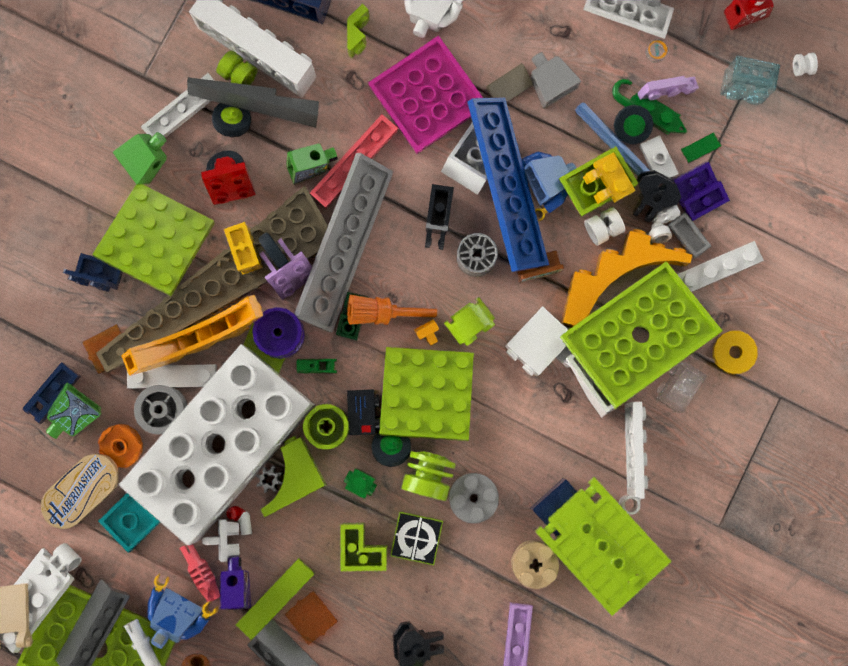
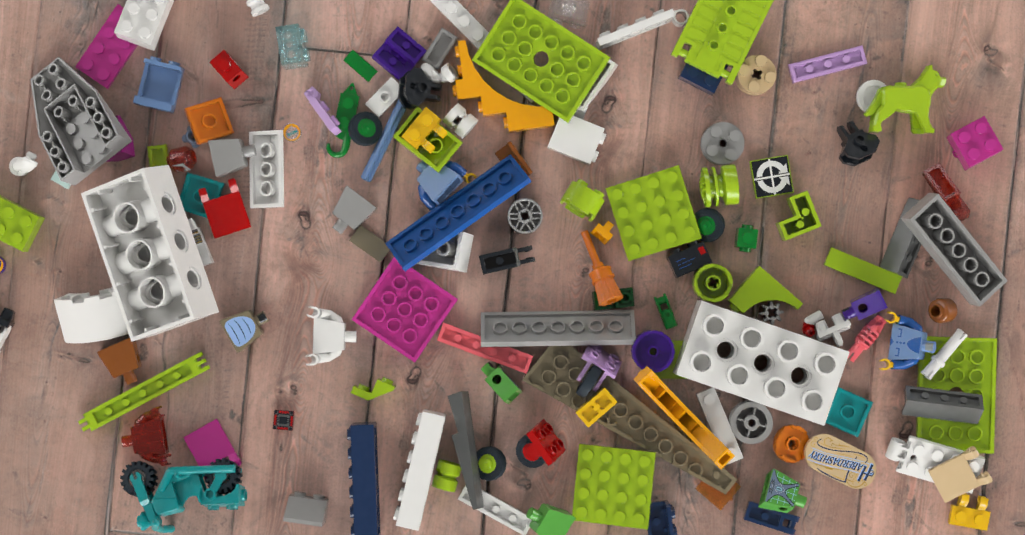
camera: 115 degrees left, 5 degrees up
(311, 617) = (866, 236): clear orange piece -> none

